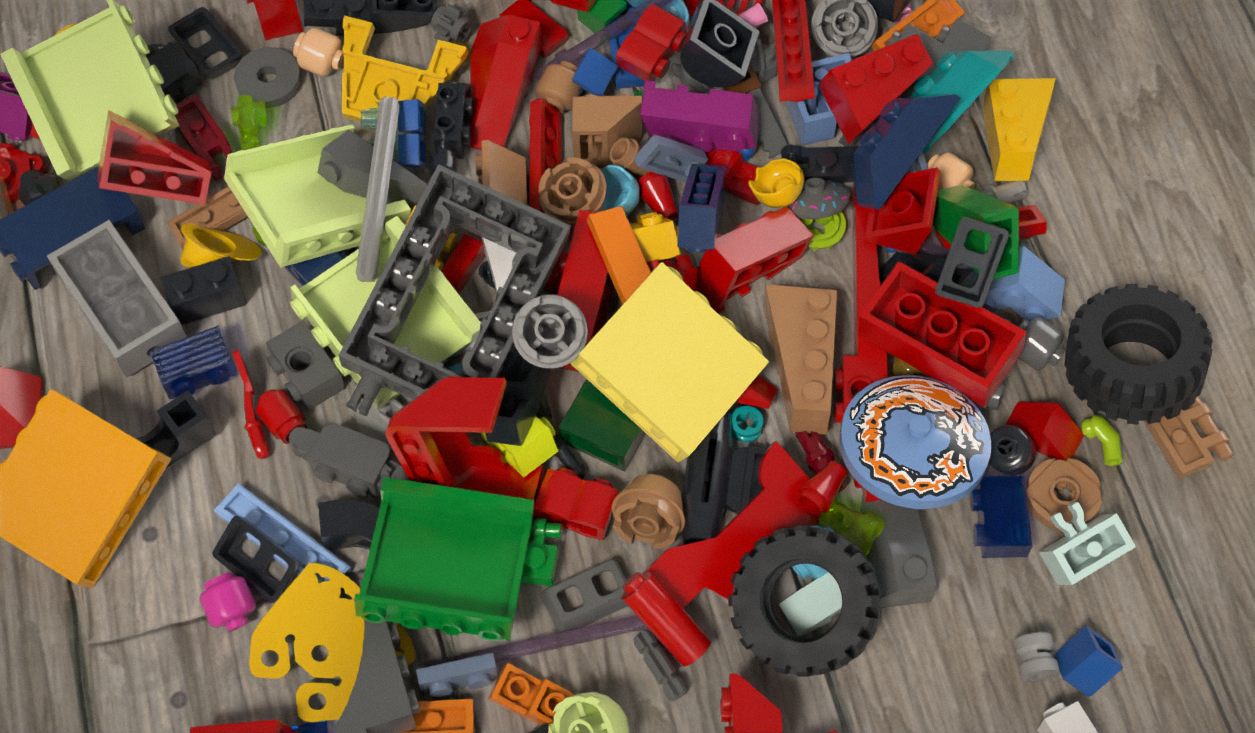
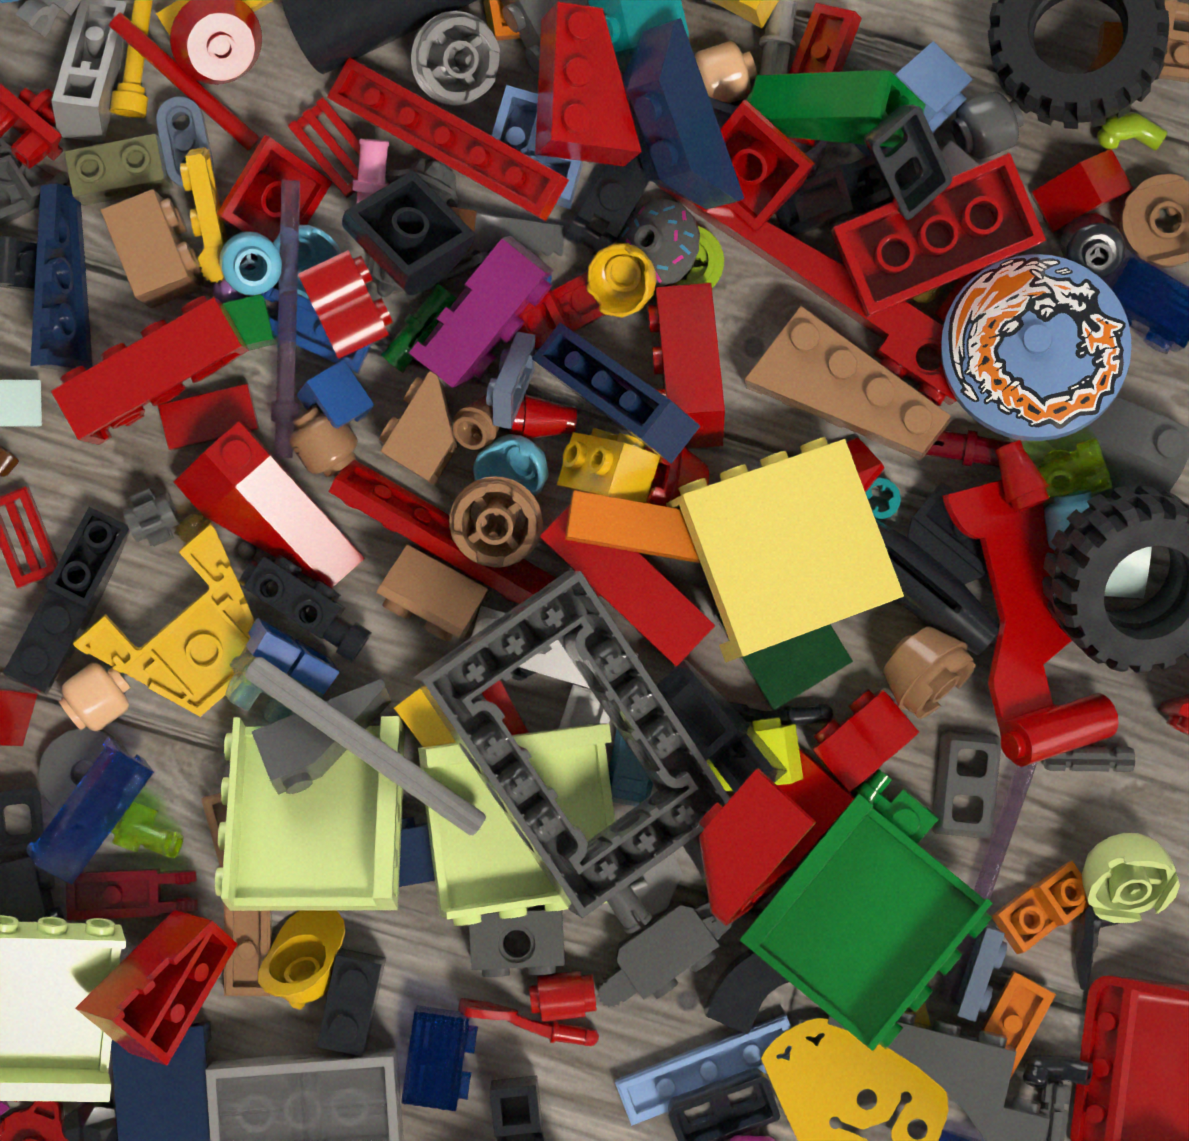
camera: 60 degrees left, 25 degrees up
(243, 78) = (90, 812): none -> clear blue container
(549, 331) = (698, 672): light grey cone -> none

